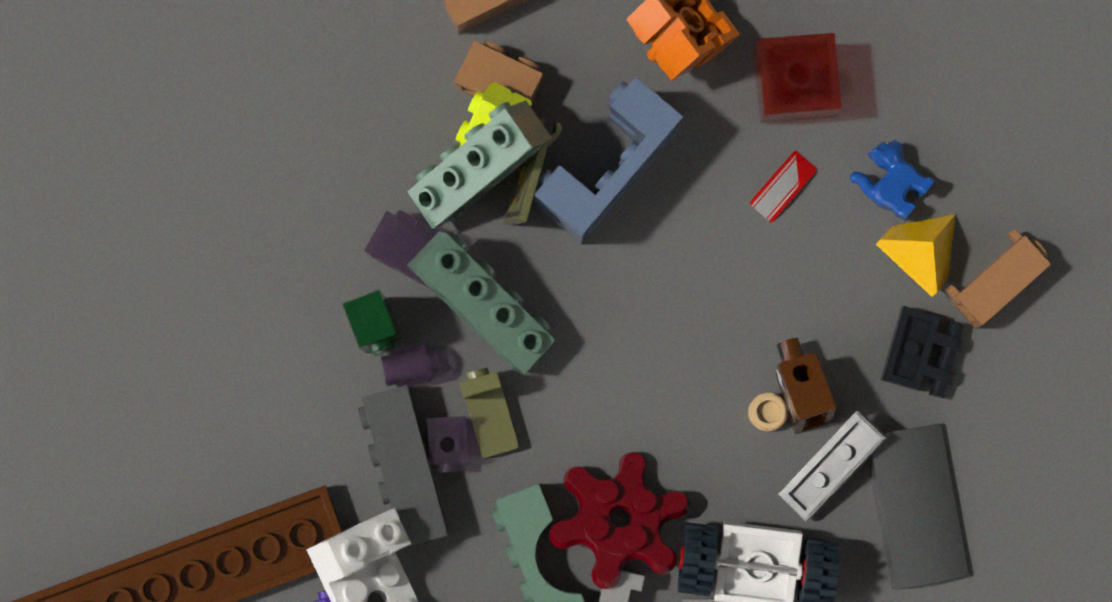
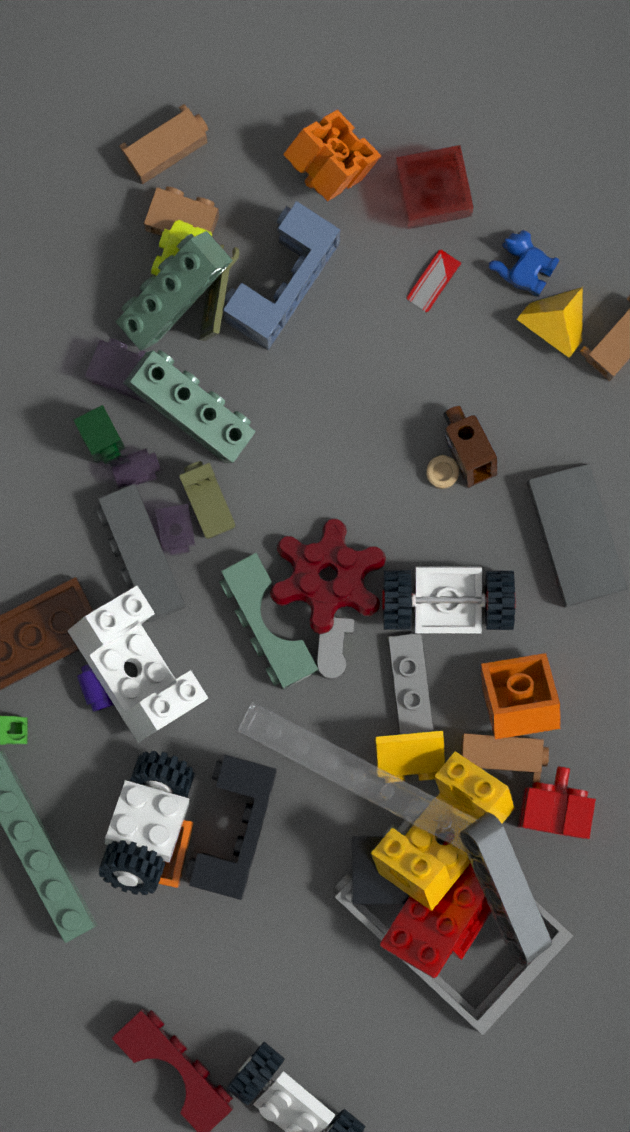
camera: 10 degrees left, 0 degrees up
(832, 465) = (501, 509): light grey tile -> none
(911, 349) = (557, 405): black plate -> none

